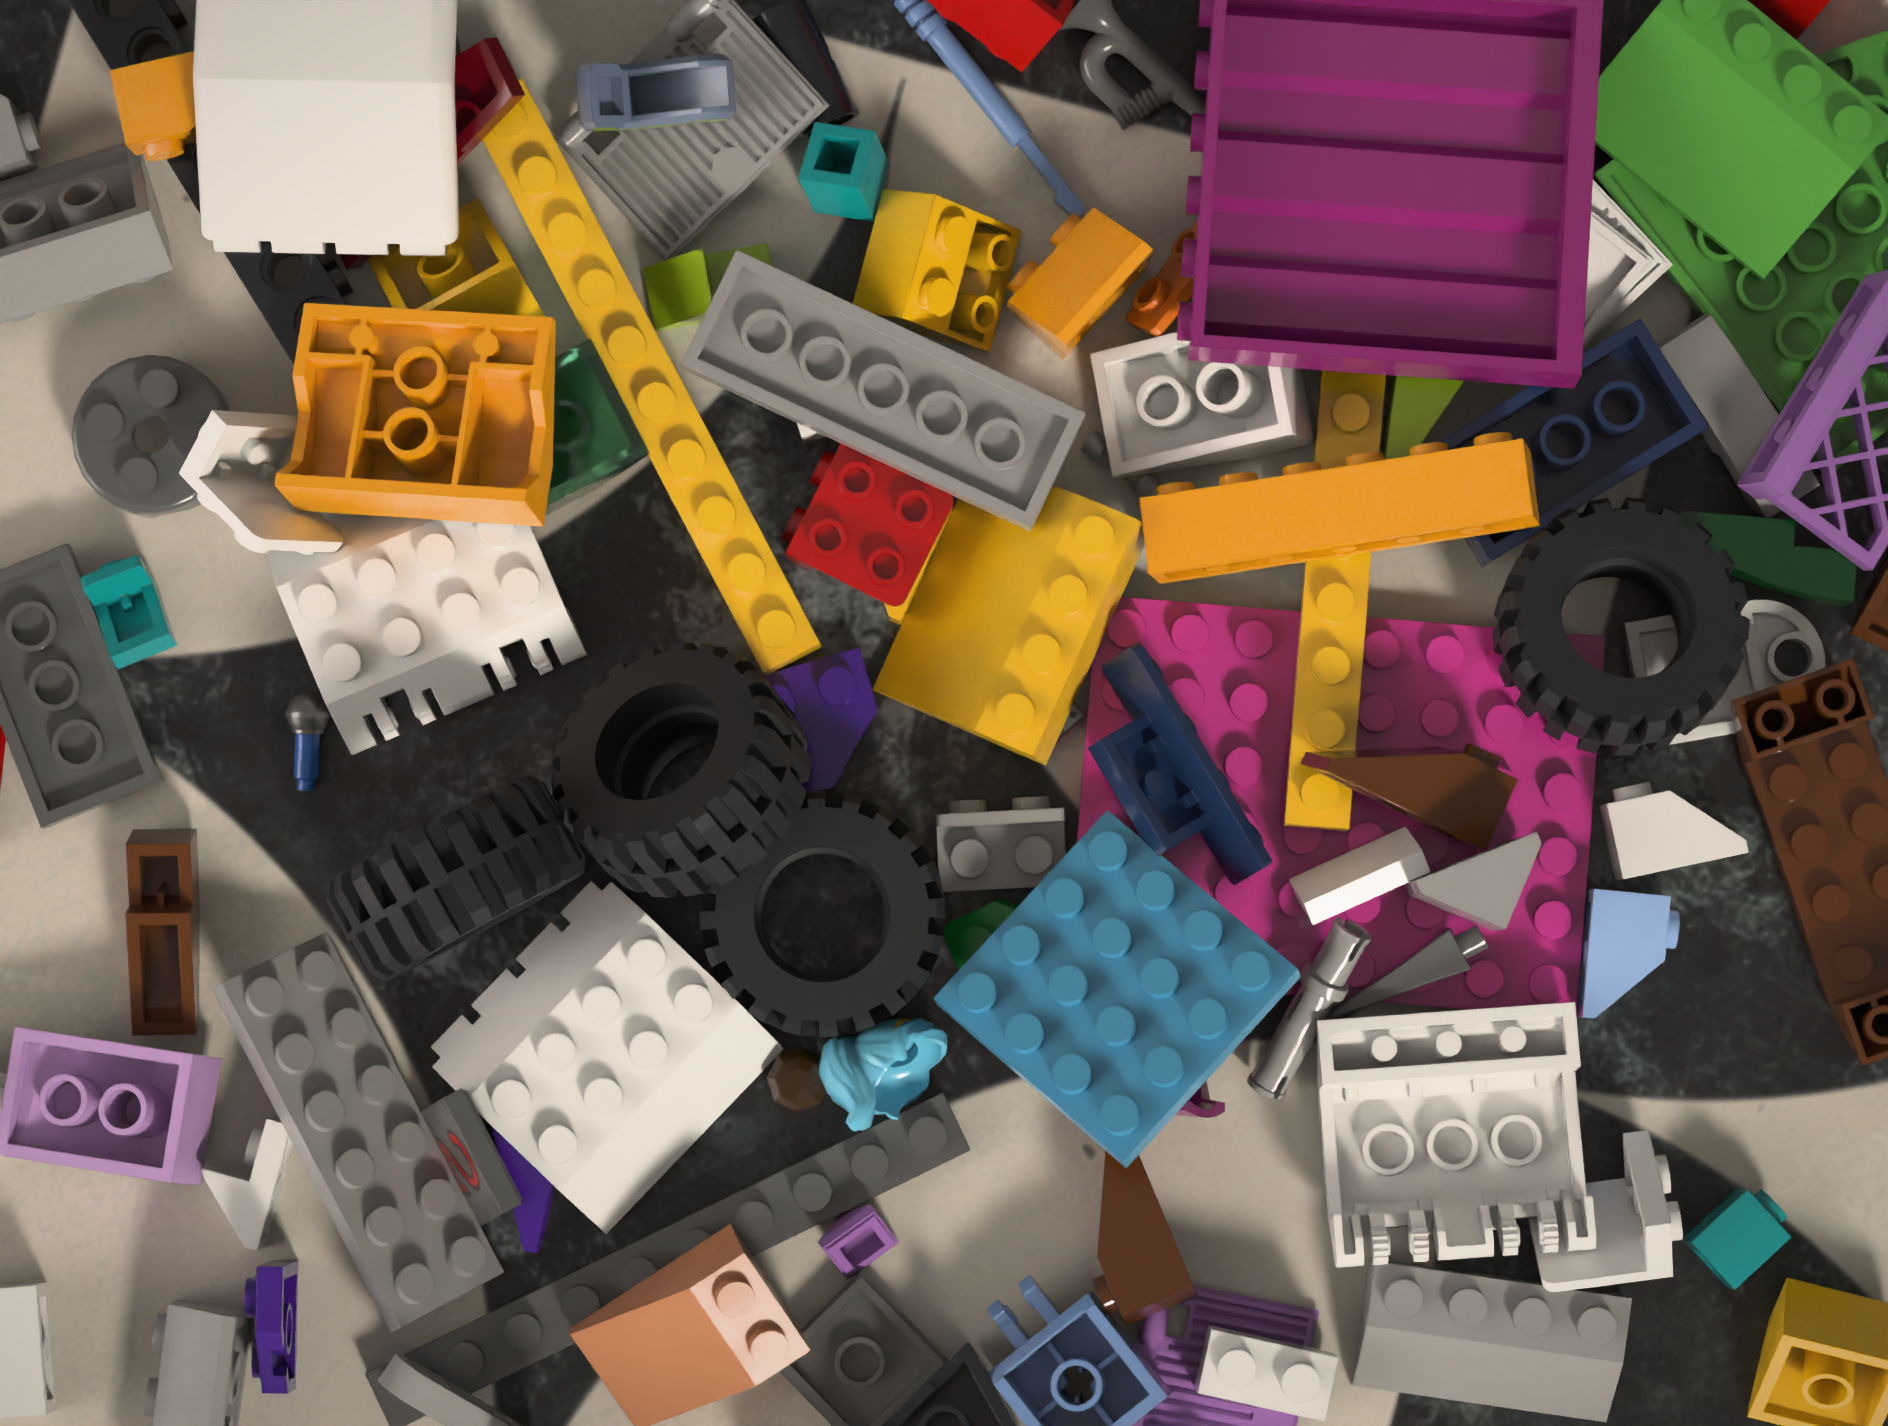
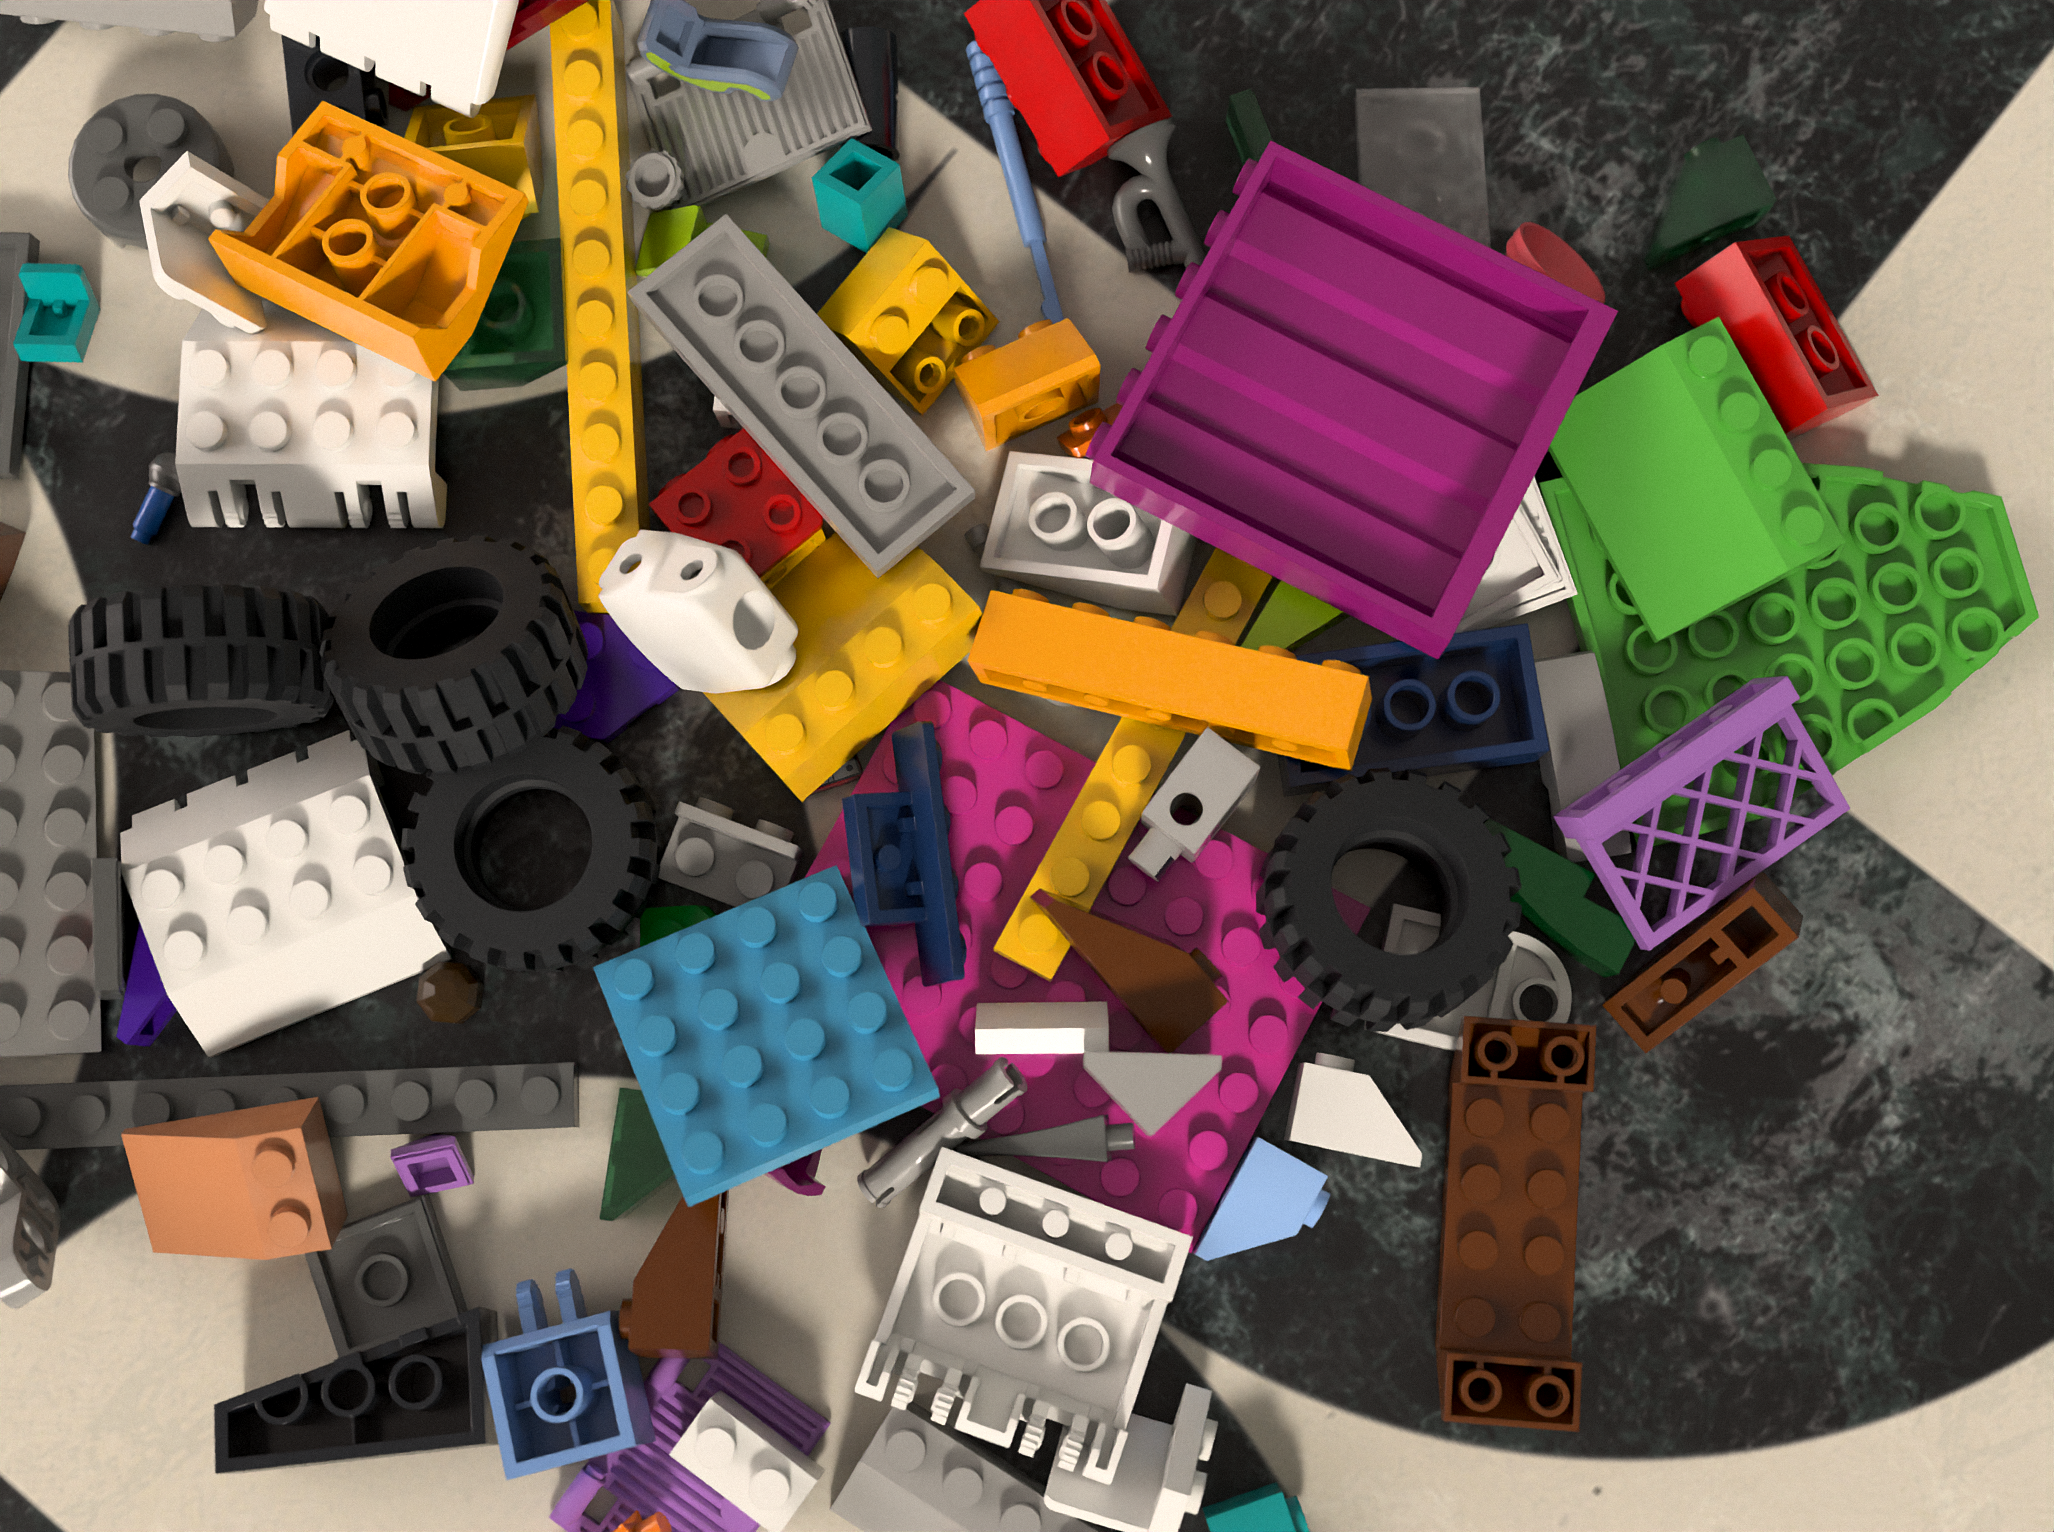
camera: 30 degrees right, 5 degrees down
(641, 237) = (655, 179): none -> light grey piece
(881, 1068) = (523, 1014): medium azure hair -> none
(905, 656) = (700, 632): none -> white piece
(1046, 1144) = (636, 1158): none -> clear green slope
(1417, 588) = (1208, 780): none -> light grey torso

